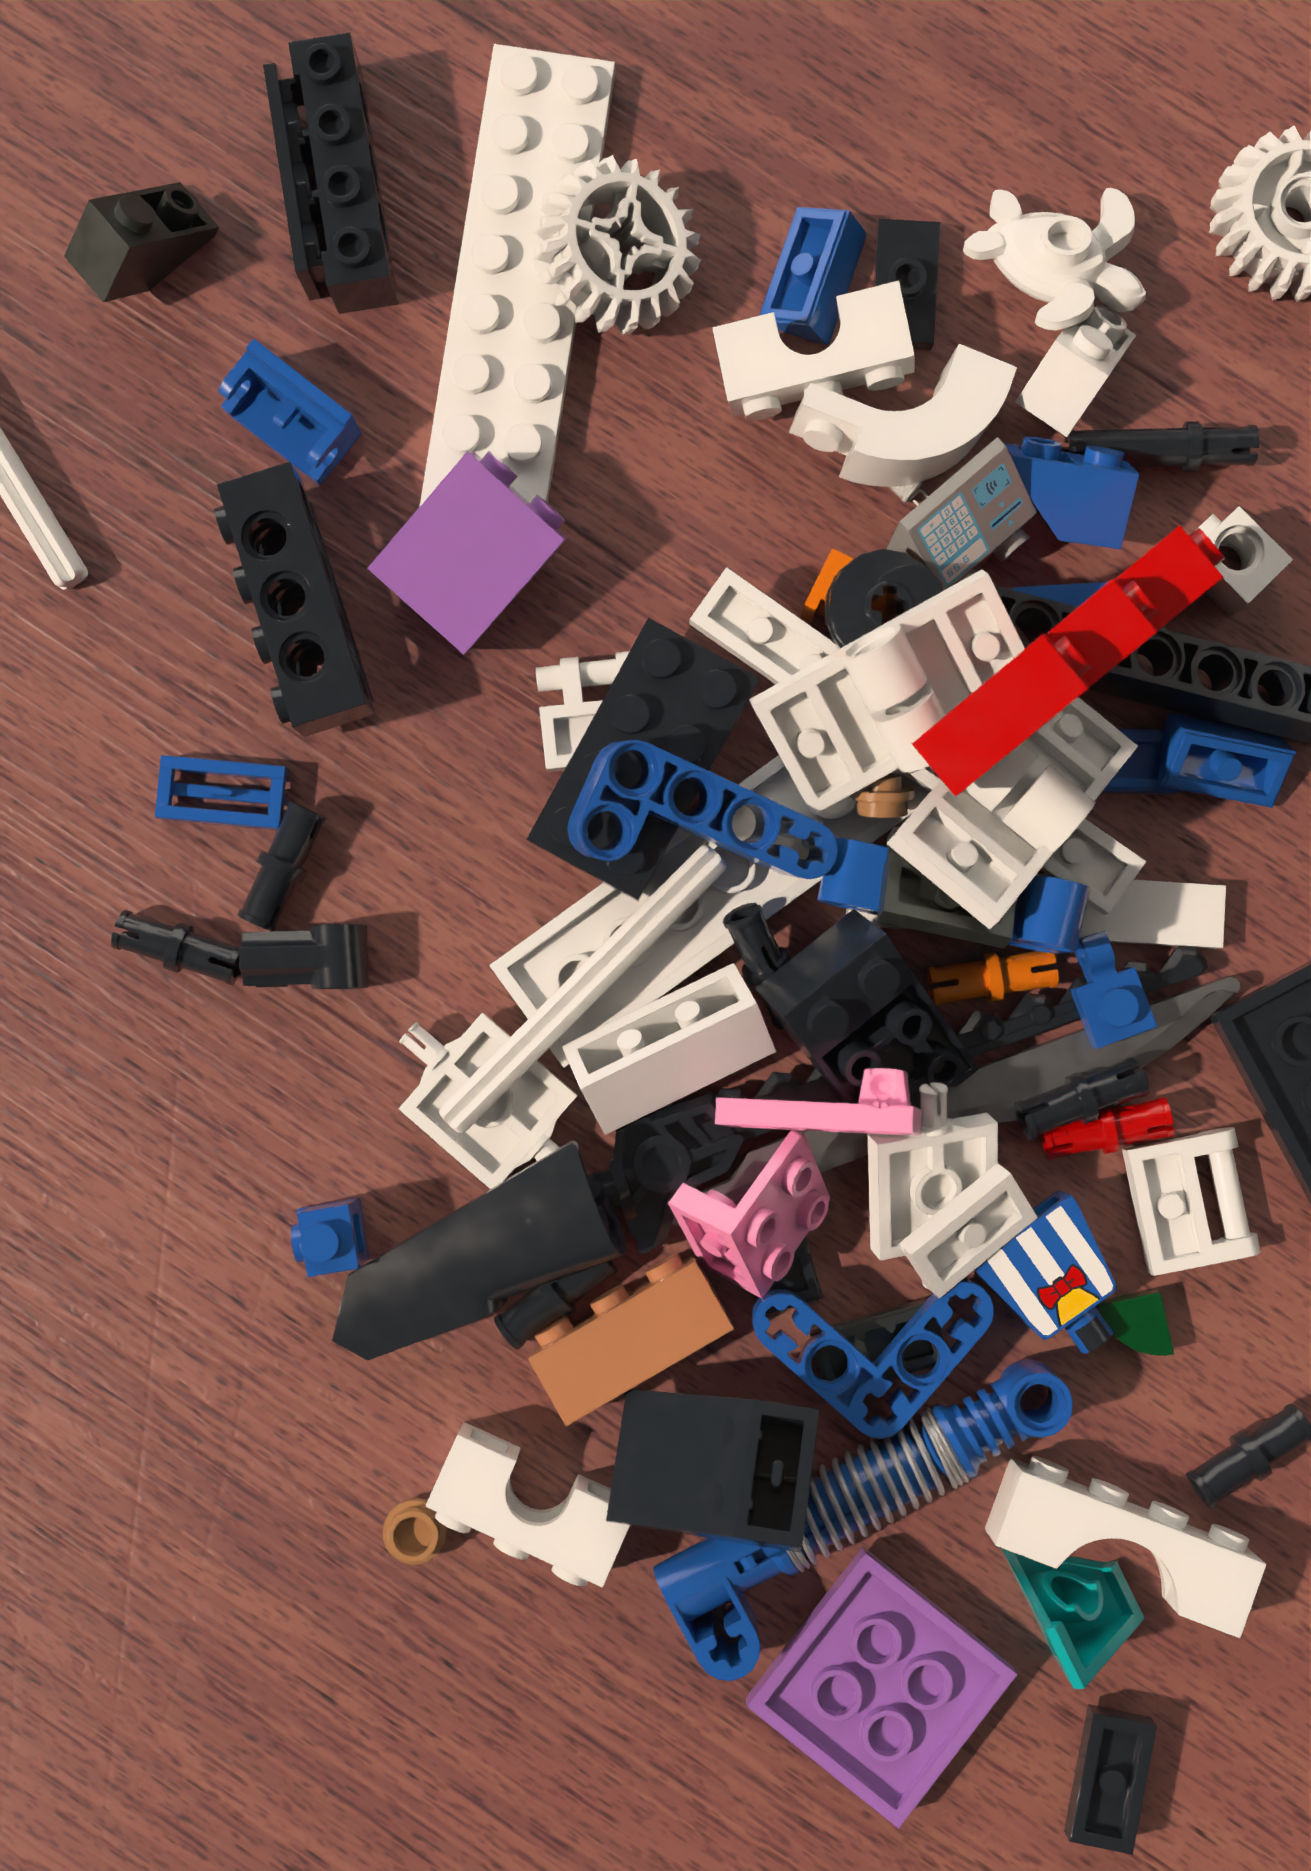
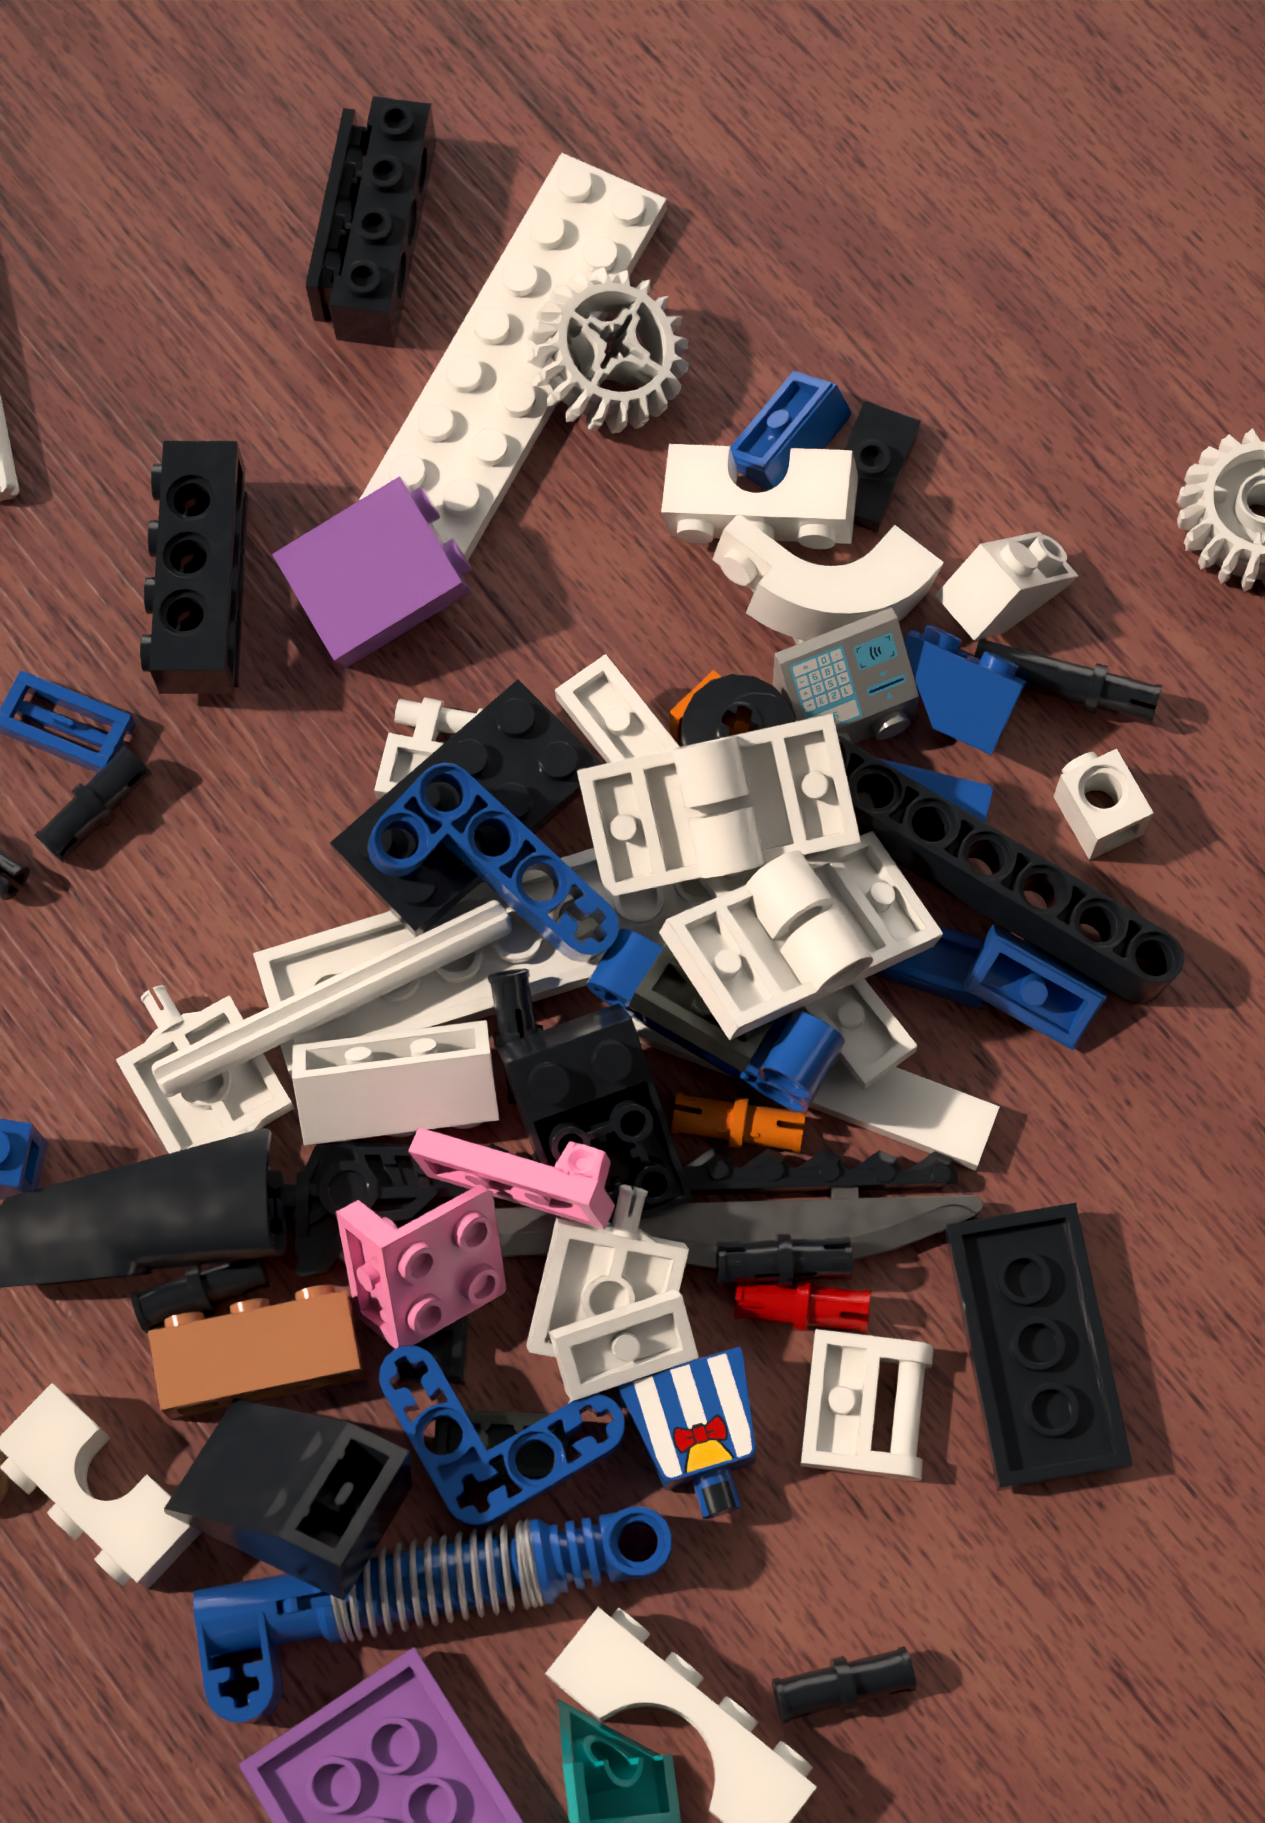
camera: 20 degrees right, 15 degrees down
(137, 239) = (177, 221): pearl dark grey slope -> none
(288, 412) = (255, 407): blue hinge -> none
(324, 957) = (99, 899): black piece -> none
(884, 798) = (677, 900): medium nougat plate -> none
(1061, 258) = (1022, 482): white animal -> none
(1069, 658) = (919, 797): red arch -> none
(1111, 1001) = (844, 1175): blue plate -> none
(1139, 1322) = (773, 1512): dark green tile -> none

